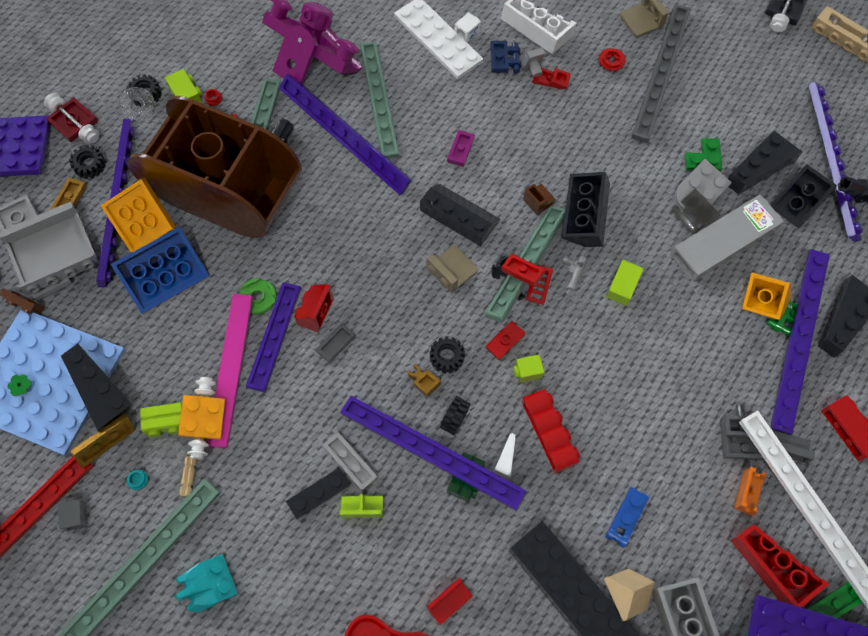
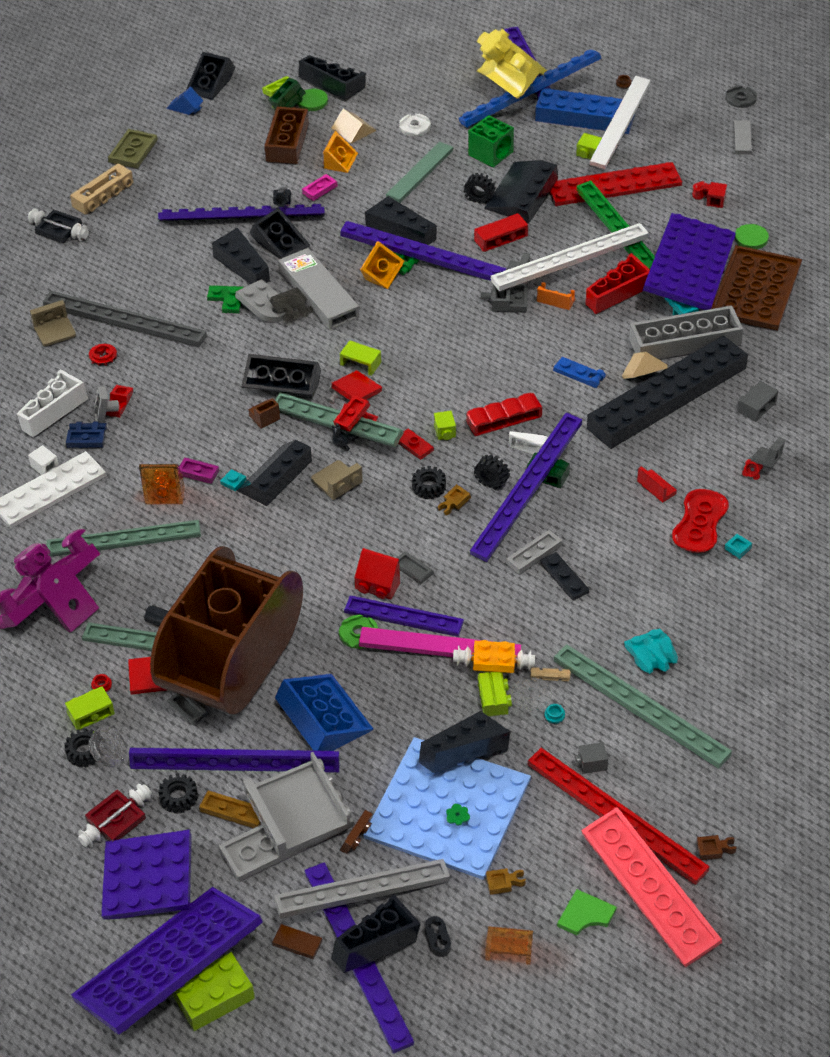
camera: 85 degrees left, 20 degrees down
(102, 440) = (517, 737): pearl gold plate -> none
(138, 215) = (267, 716): light orange plate -> none
(345, 134) = (166, 564): dark purple plate -> none
(361, 506) = (577, 543): lime panel -> none
(432, 115) = (162, 483): none -> clear orange slope
(451, 179) = (233, 480): none -> teal plate
(582, 281) = (357, 385): none -> red tile

